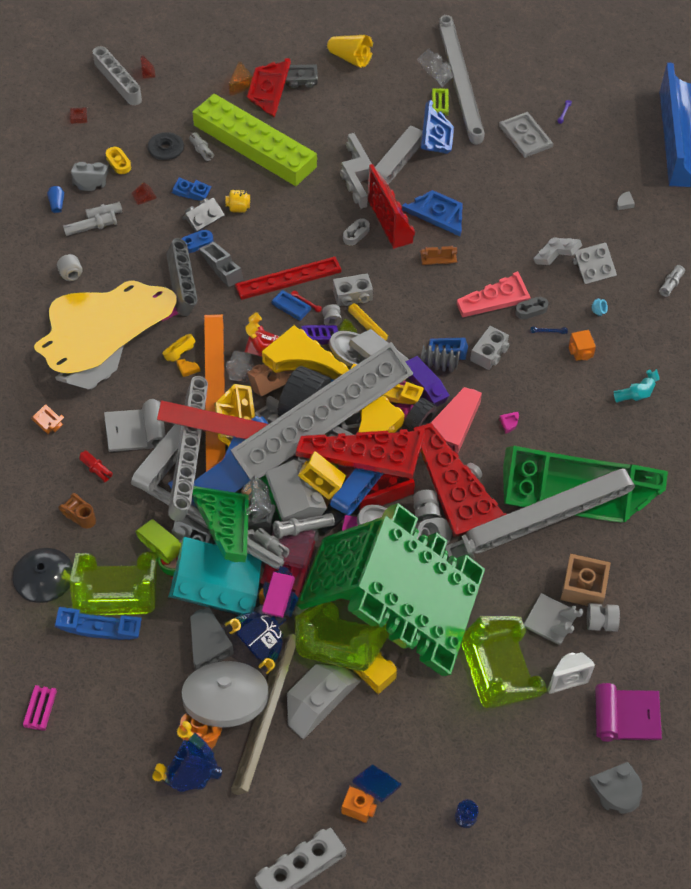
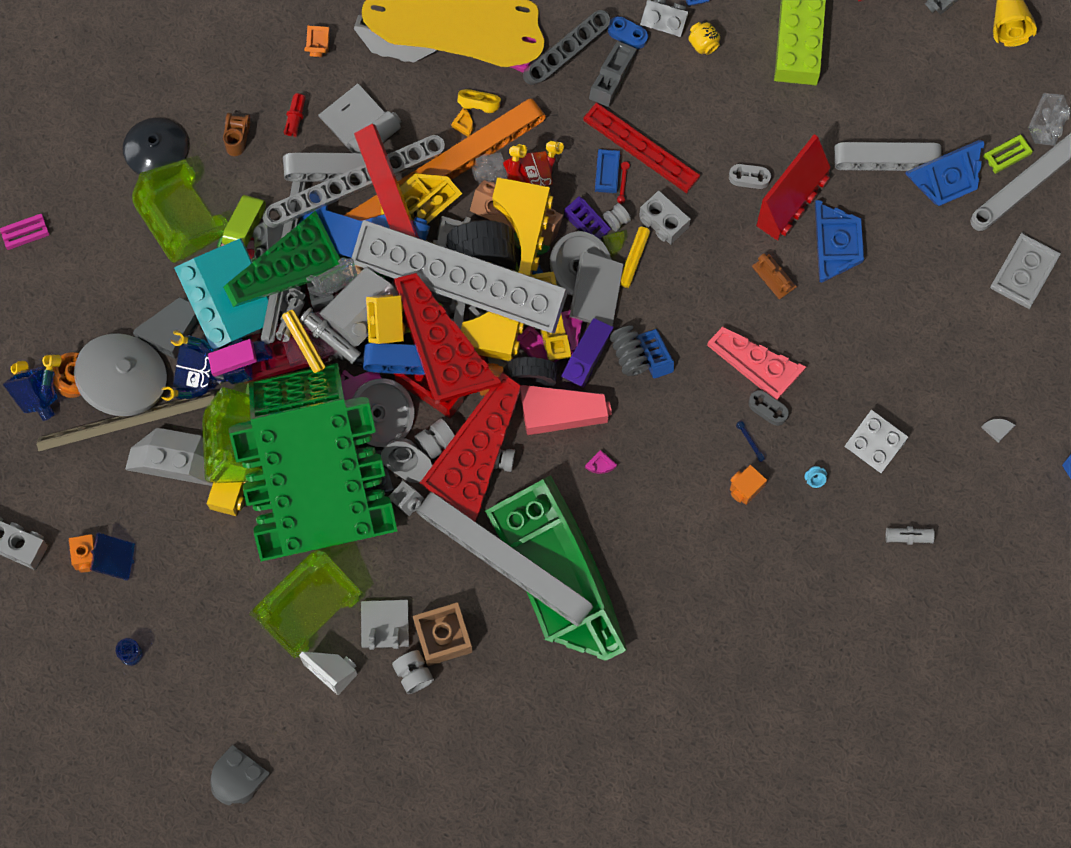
camera: 60 degrees right, 15 degrees up
(98, 626) = (129, 224): blue slope -> none
(297, 541) = (303, 341): none -> yellow axle
(356, 170) = (835, 126): light grey bracket -> none
(489, 348) = (679, 388): light grey brick -> none
(556, 247) = (868, 388): light grey plate -> none
(625, 715) = (319, 745): magenta door -> none
(638, 390) = (728, 577): teal arm -> none

